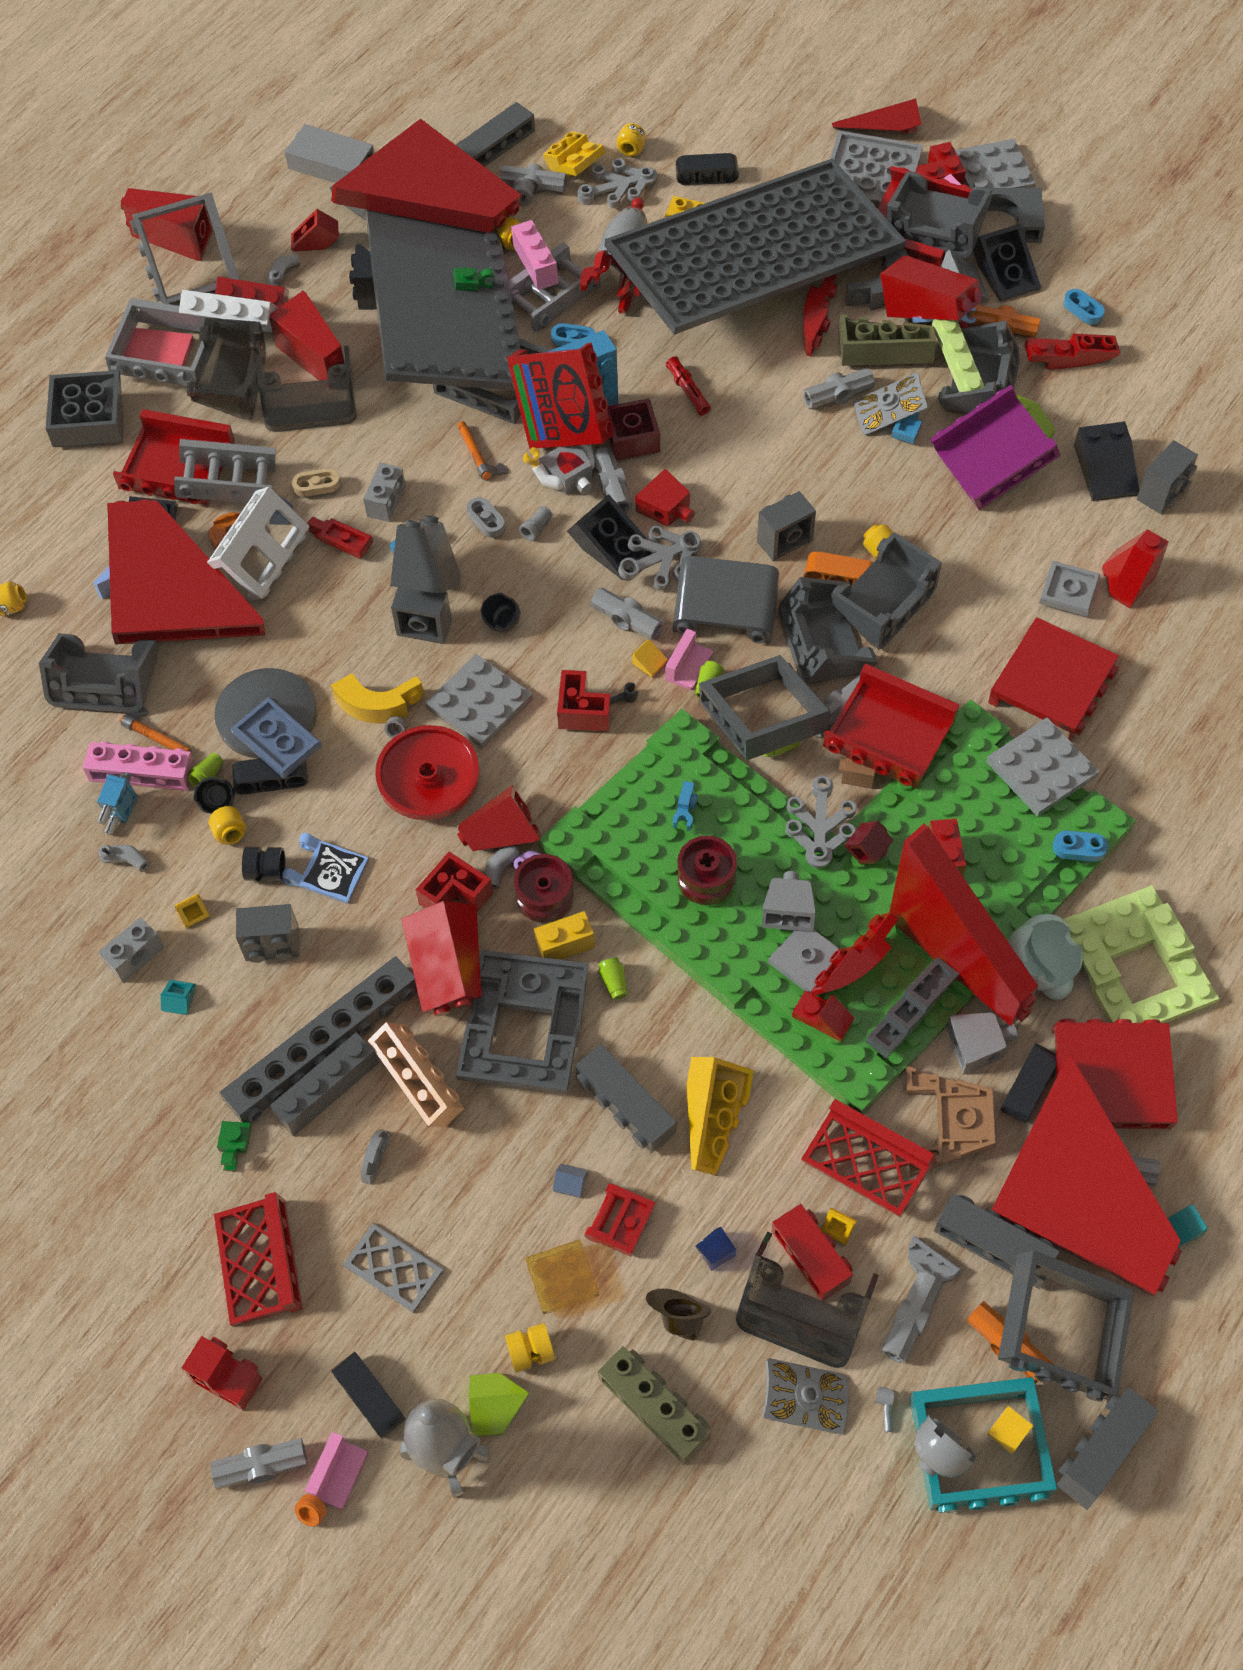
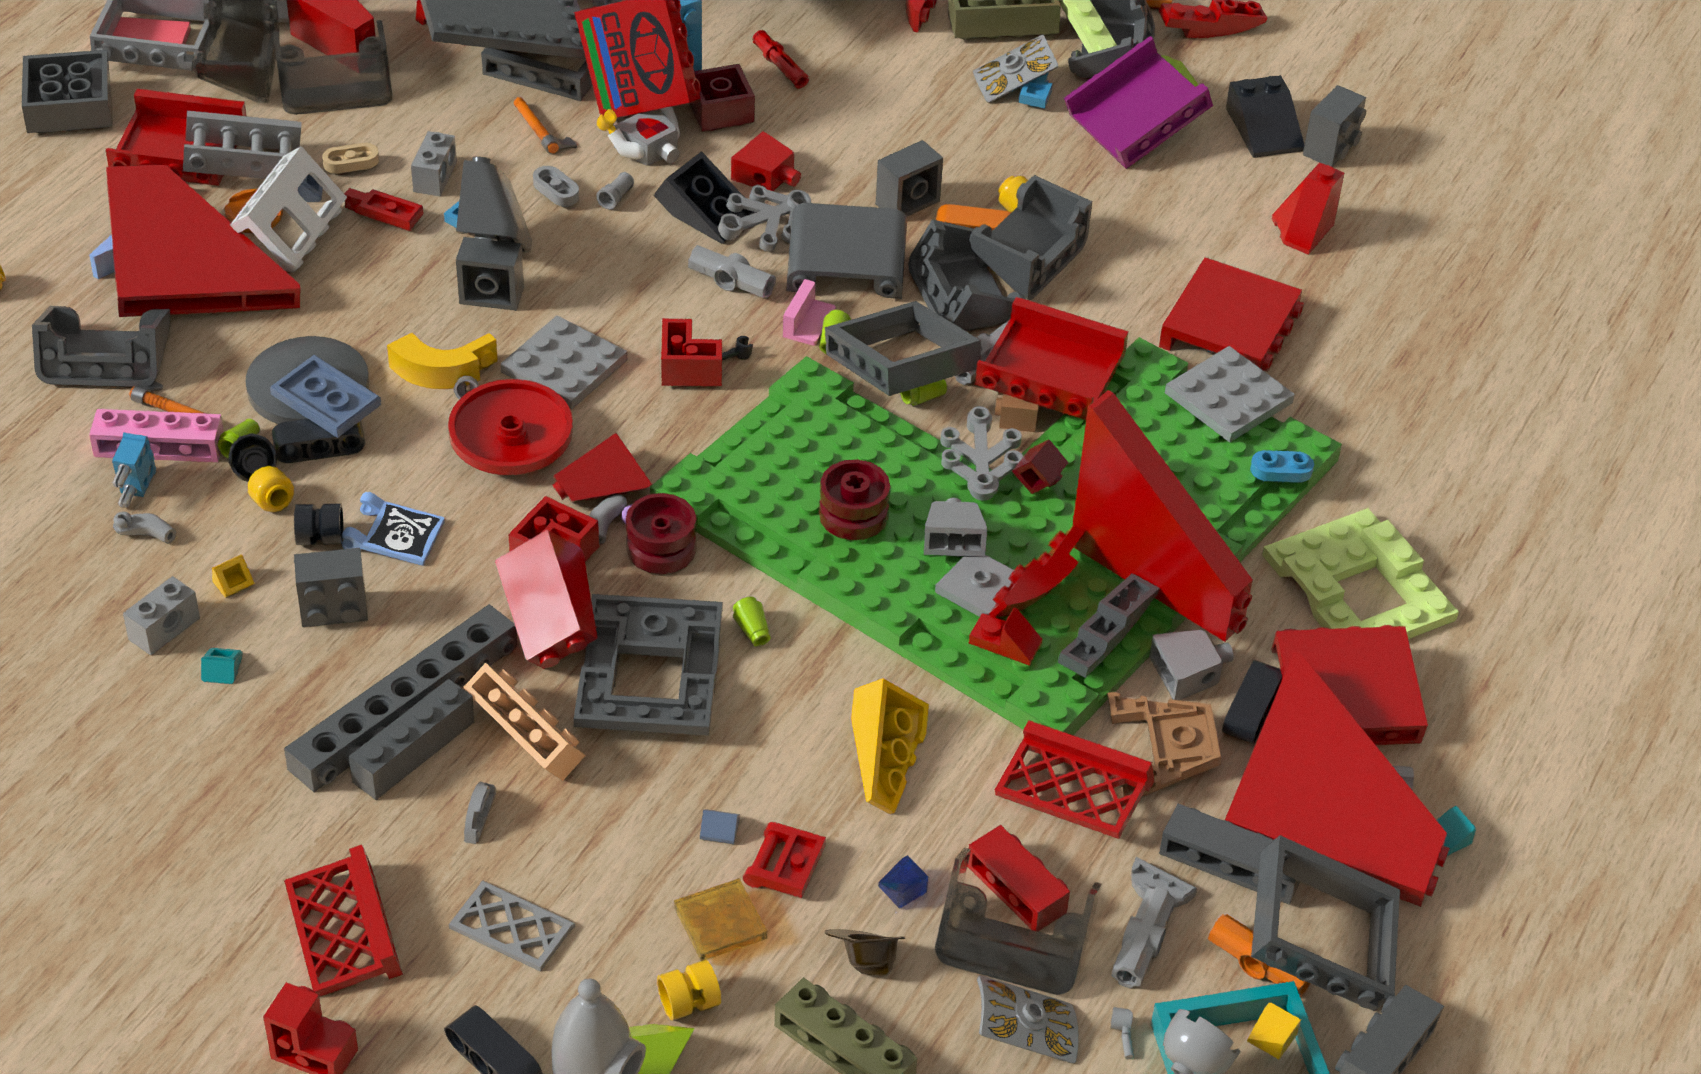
camera: 10 degrees left, 15 degrees down
(233, 1140) = (302, 804): green plate -> none
(500, 612) = (583, 273): black hair -> none
(565, 937) = (692, 578): yellow brick -> none
(612, 478) = (697, 140): light grey piece -> none
(626, 1099) = (780, 735): dark grey brick -> none
(649, 658) = (761, 314): yellow slope -> none
(687, 801) = (823, 437): dark azure plate -> none
(838, 388) = (954, 57): light grey piece -> none
(838, 1226) = (1049, 850): yellow slope -> none
(1048, 954) = (1272, 575): light aqua piece -> none
(1069, 588) = (1238, 235): light grey plate -> none

